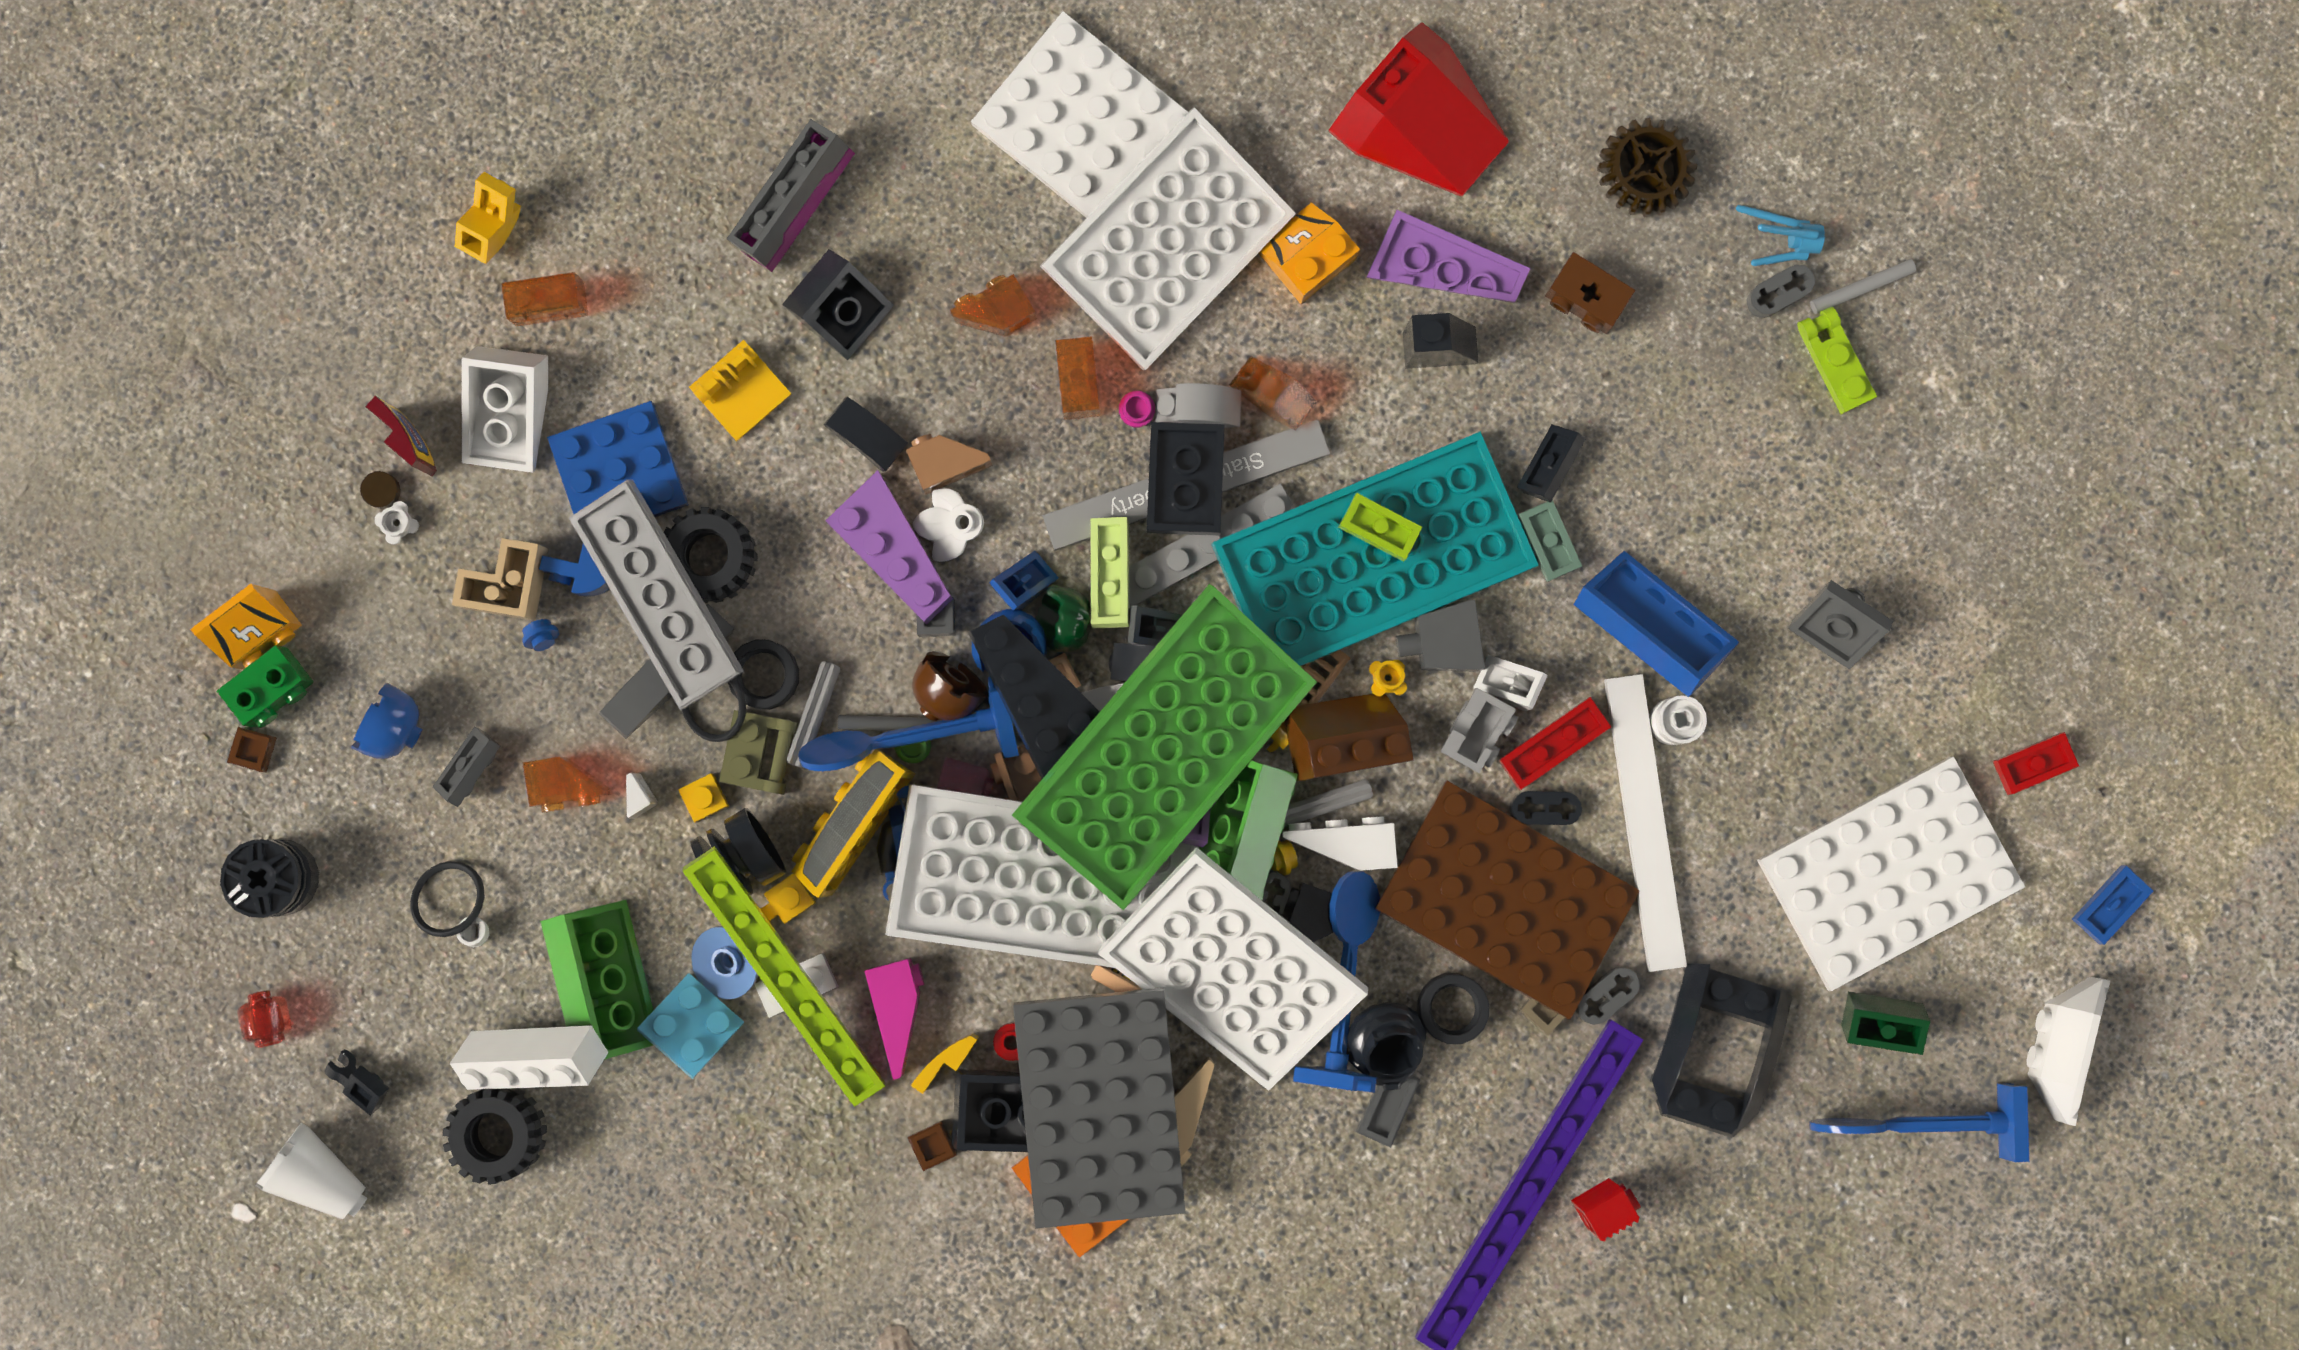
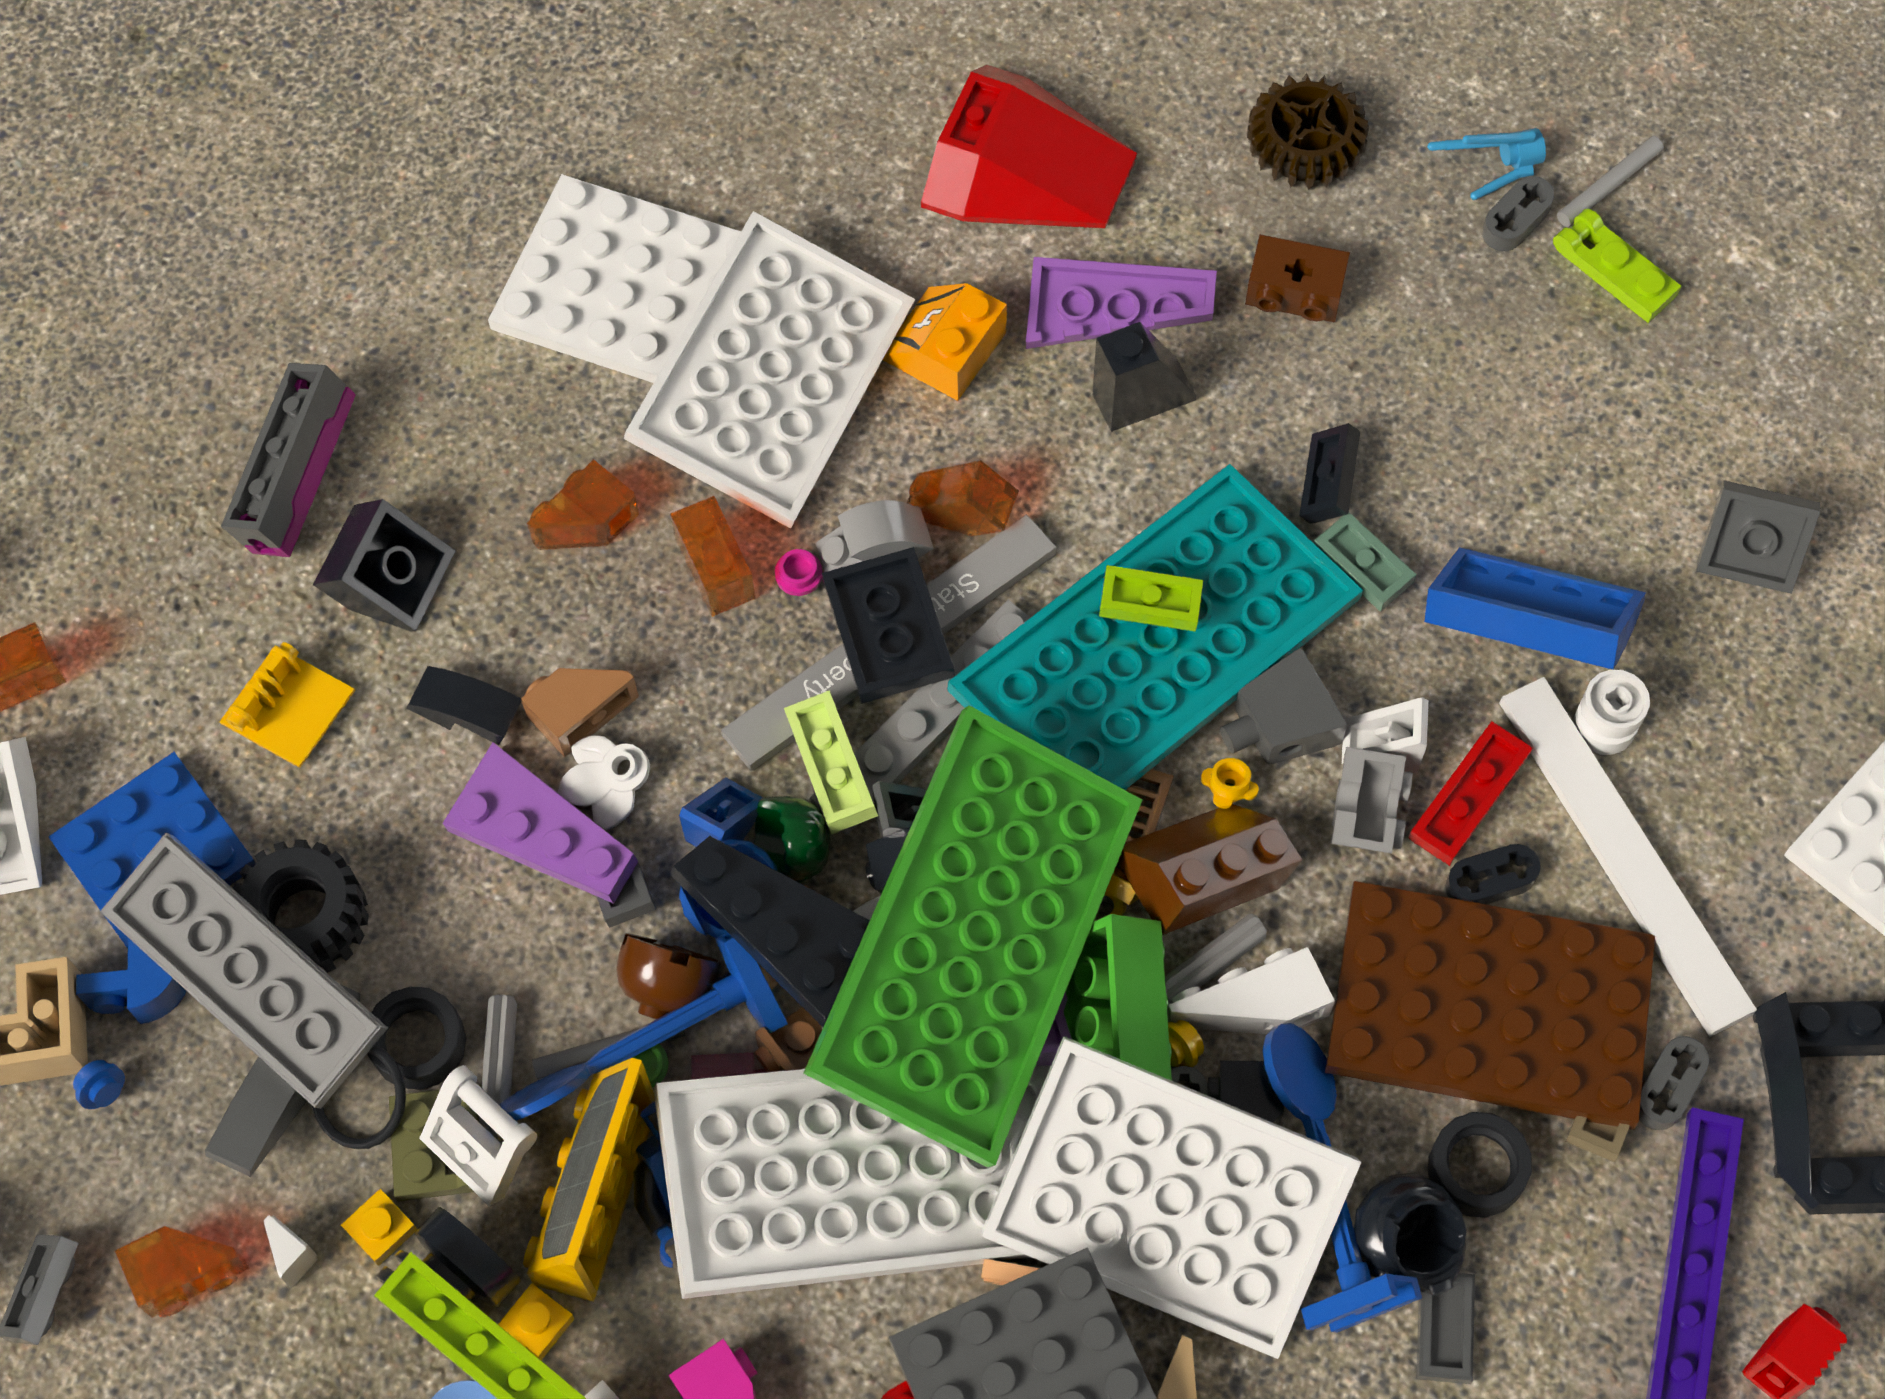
camera: 15 degrees left, 20 degrees down
(783, 768) = (467, 1145): none -> white plate

